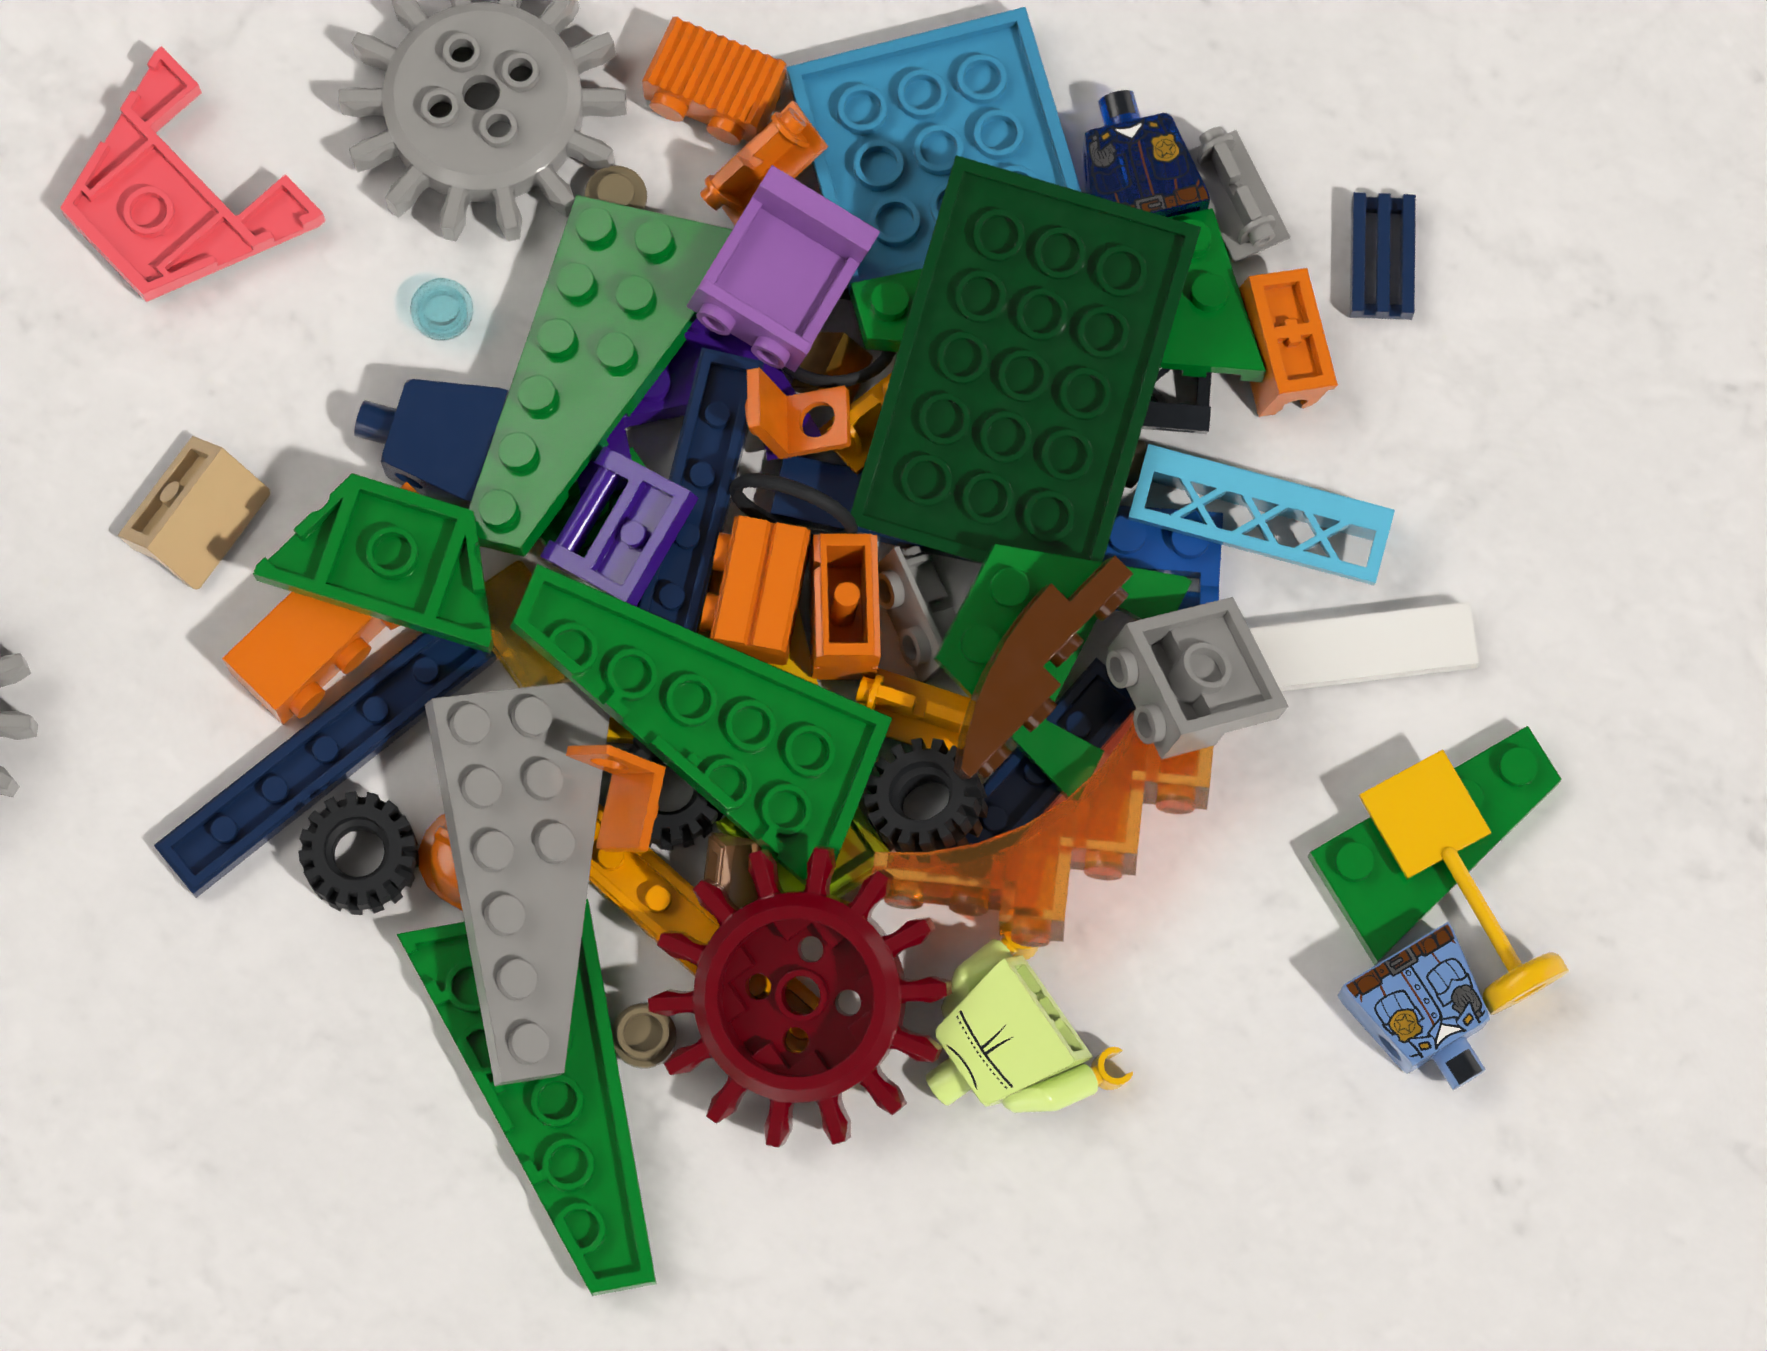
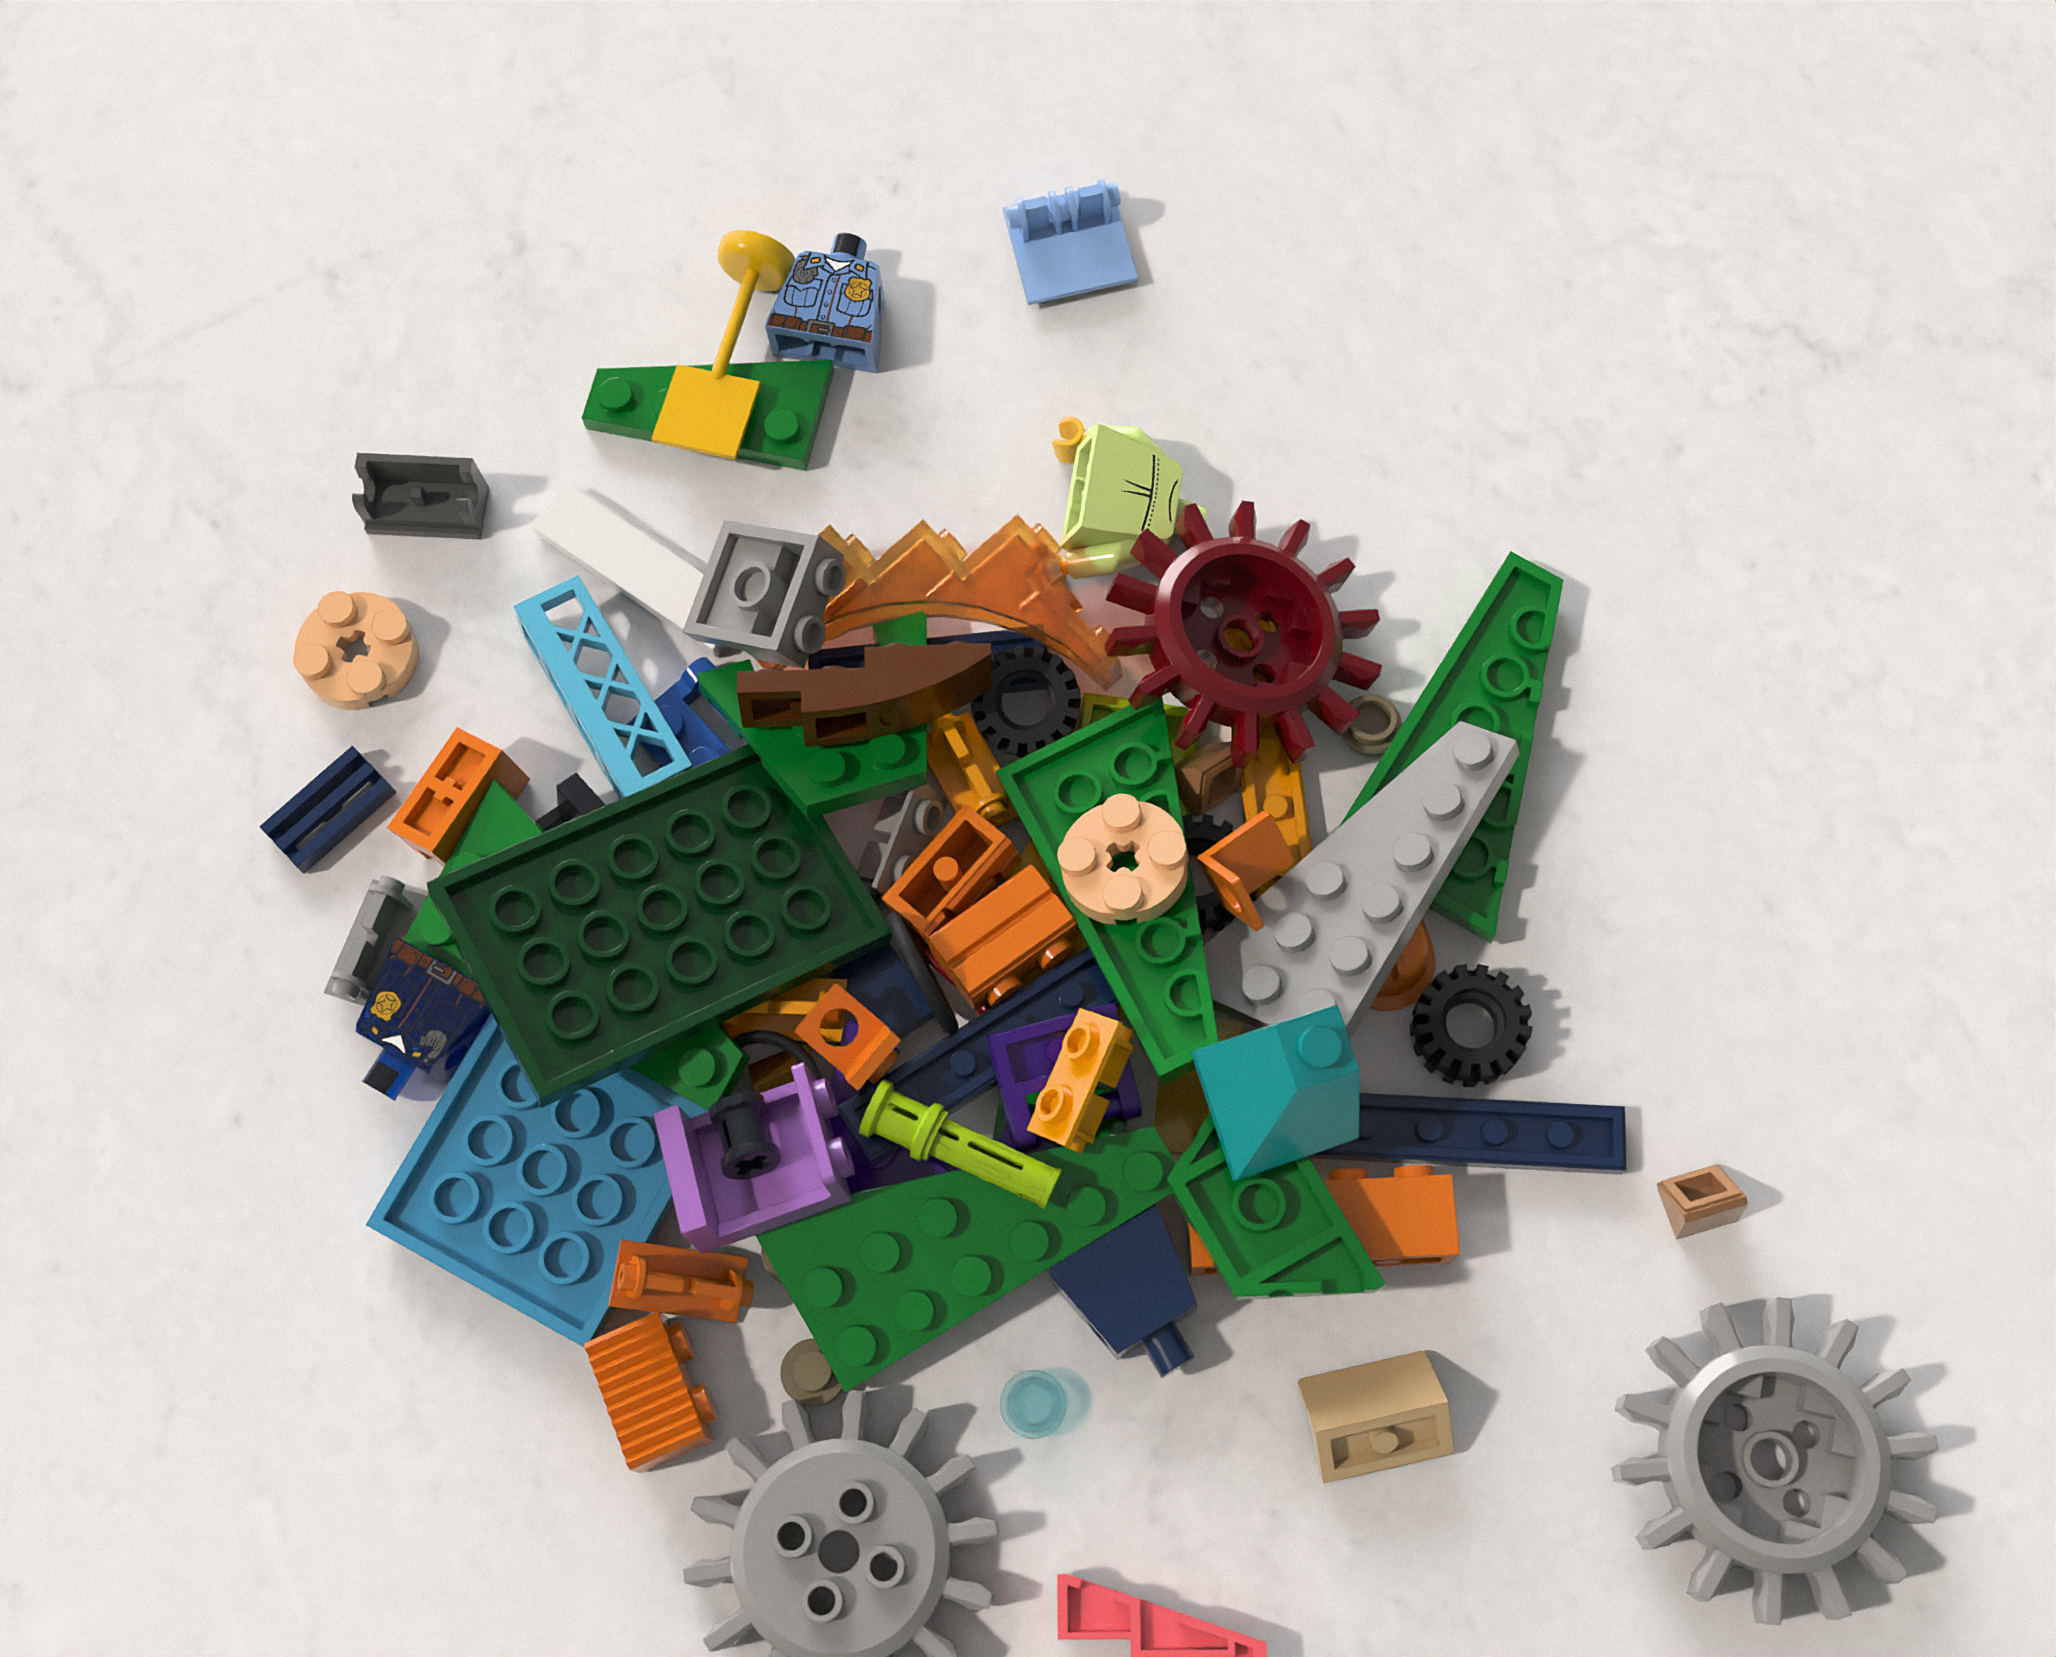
camera: 130 degrees left, 5 degrees down
(83, 874) = (1701, 1201): none -> medium nougat slope
(444, 627) = (1281, 1091): none -> teal slope
(566, 429) = (930, 1133): none -> lime pin
(590, 502) = (1090, 1053): none -> light orange hinge
(743, 686) = (1119, 827): none -> light nougat plate
(801, 275) = (744, 1136): none -> black bush
(1289, 1257) = (1070, 242): none -> light blue hinge
(1484, 420) = (335, 625): none -> light nougat plate
(1580, 545) = (421, 496): none -> dark grey hinge

